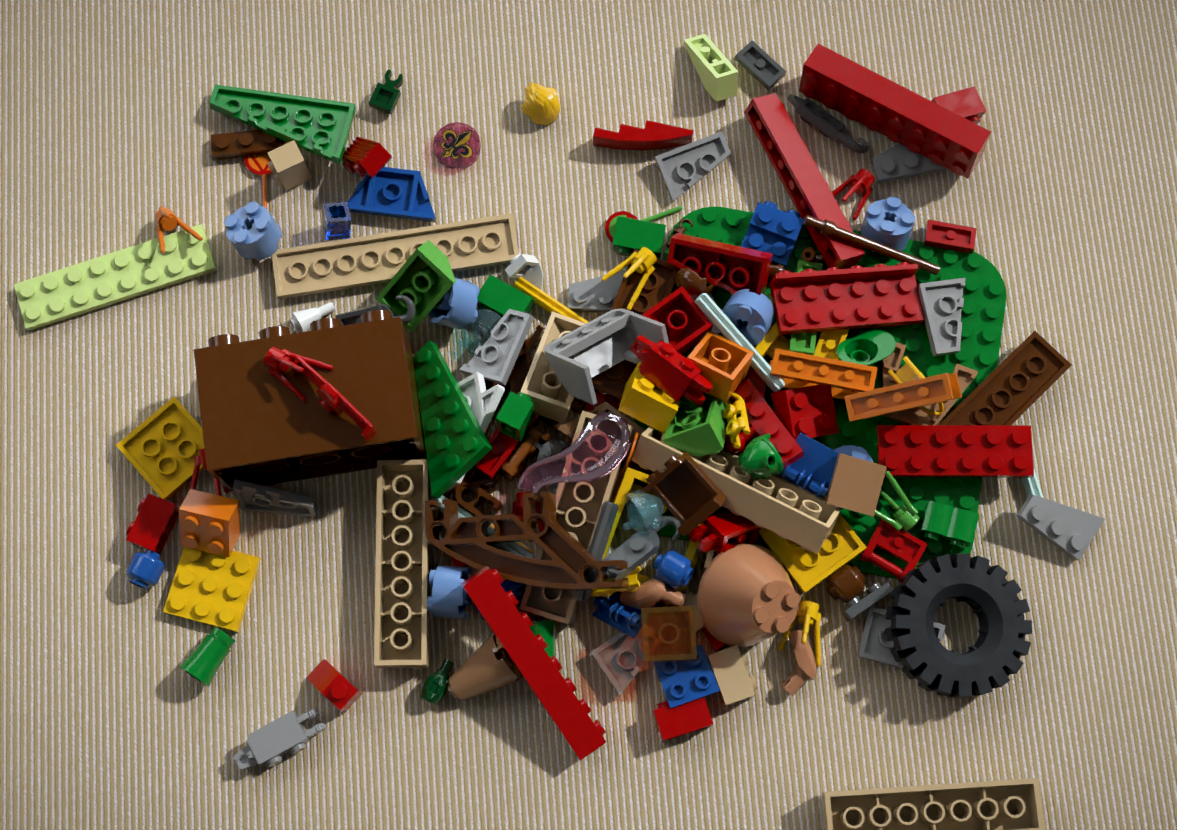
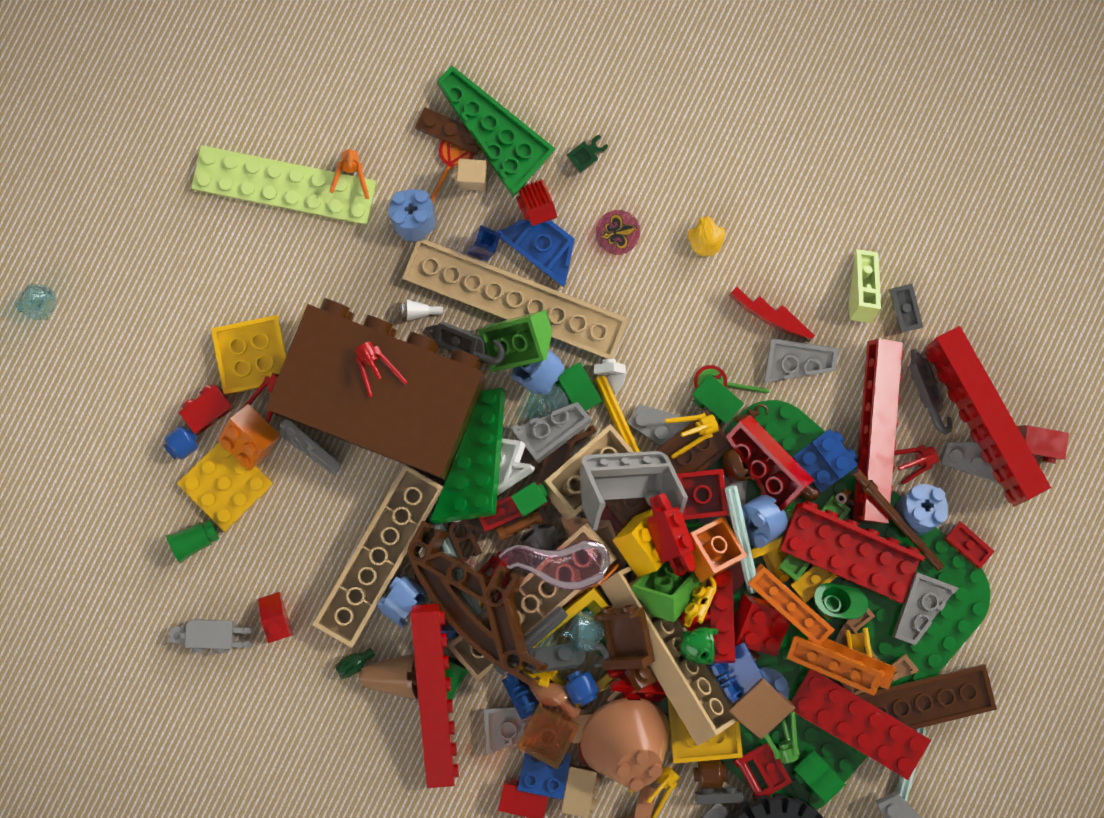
camera: 30 degrees right, 10 degrees up
(333, 400) = (390, 413): red plate -> none
(723, 521) = (640, 678): none -> reddish brown plate

